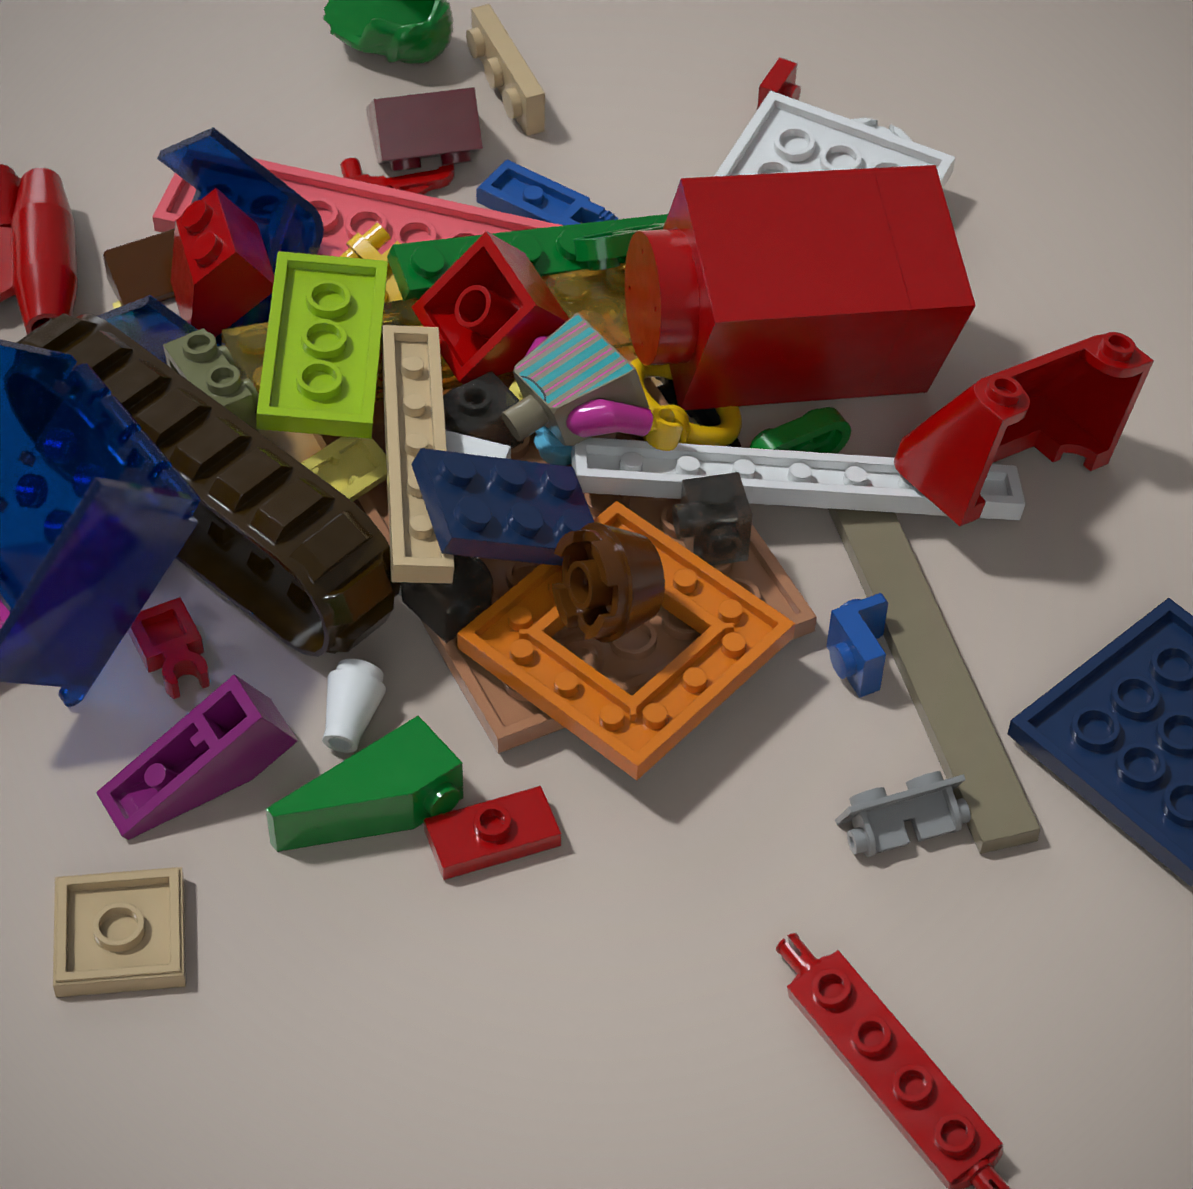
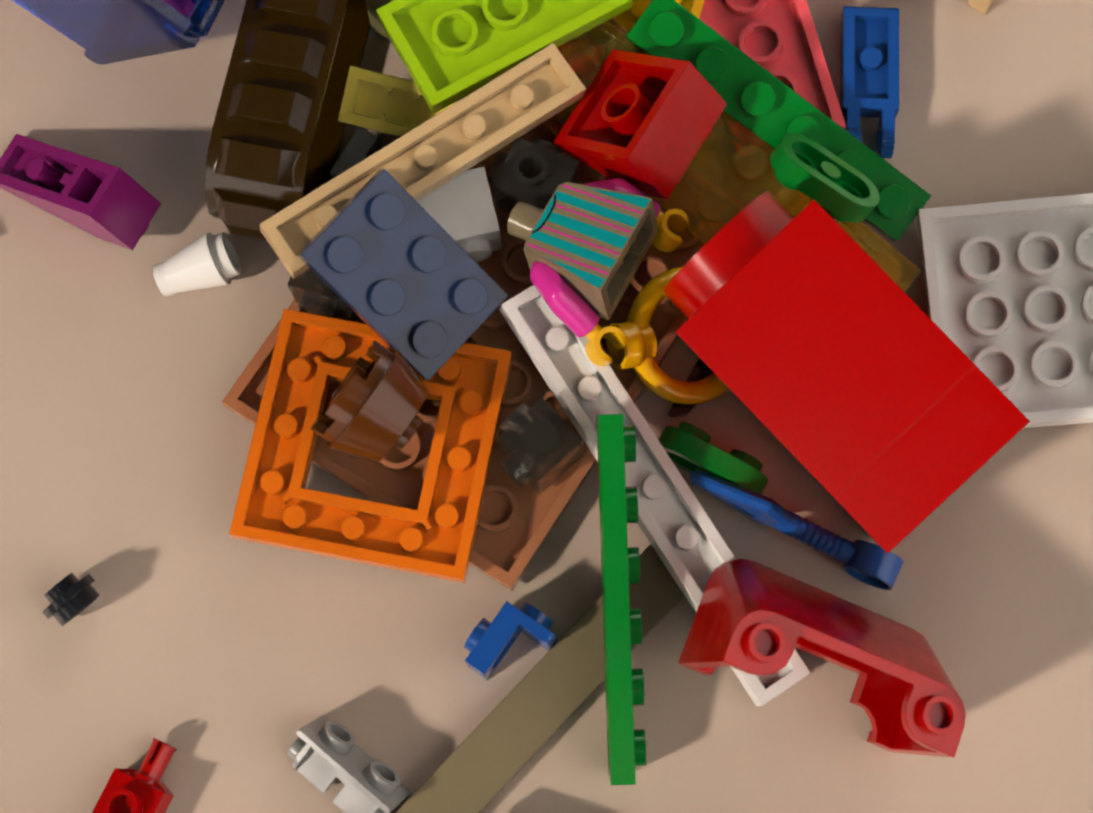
camera: 65 degrees right, 25 degrees up
(170, 642) = (179, 87): red plate -> none
(372, 792) = (137, 348): green slope -> none
(492, 832) = (144, 449): red plate -> none
(600, 945) = (70, 598): none -> black plate
(867, 420) = (860, 558): none -> blue piece
(880, 532) = (620, 623): none -> green plate

